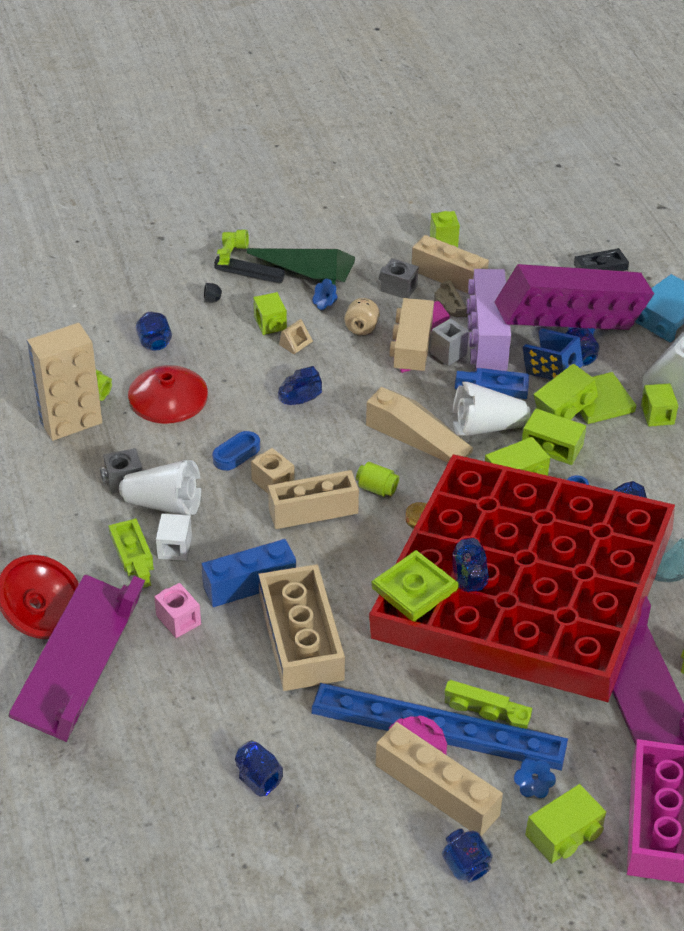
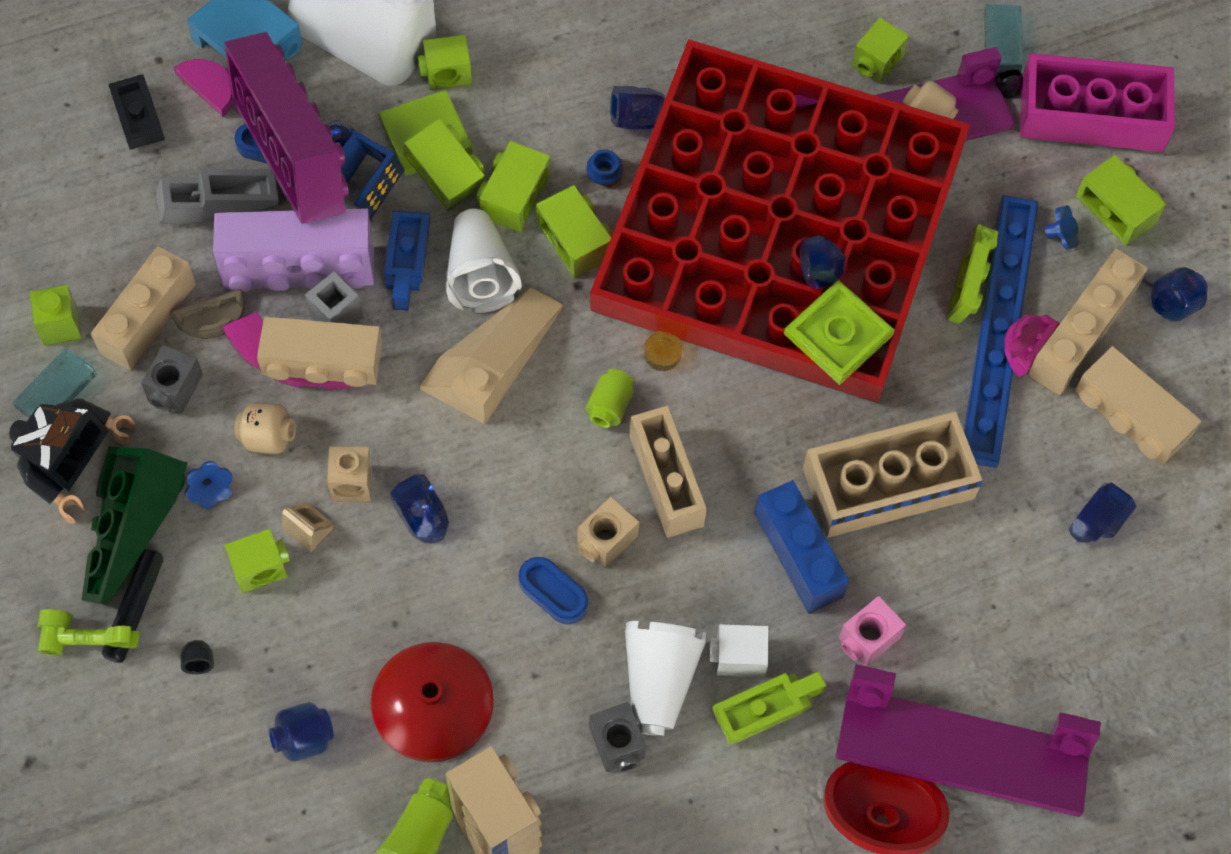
camera: 95 degrees left, 20 degrees up
(326, 351) = (350, 474): none -> tan brick
(352, 231) = (59, 444): none -> black torso
(355, 807) = (1137, 406): none -> tan brick
(395, 237) = (56, 383): none -> clear light blue tile
(645, 684) = (933, 99): none -> tan head

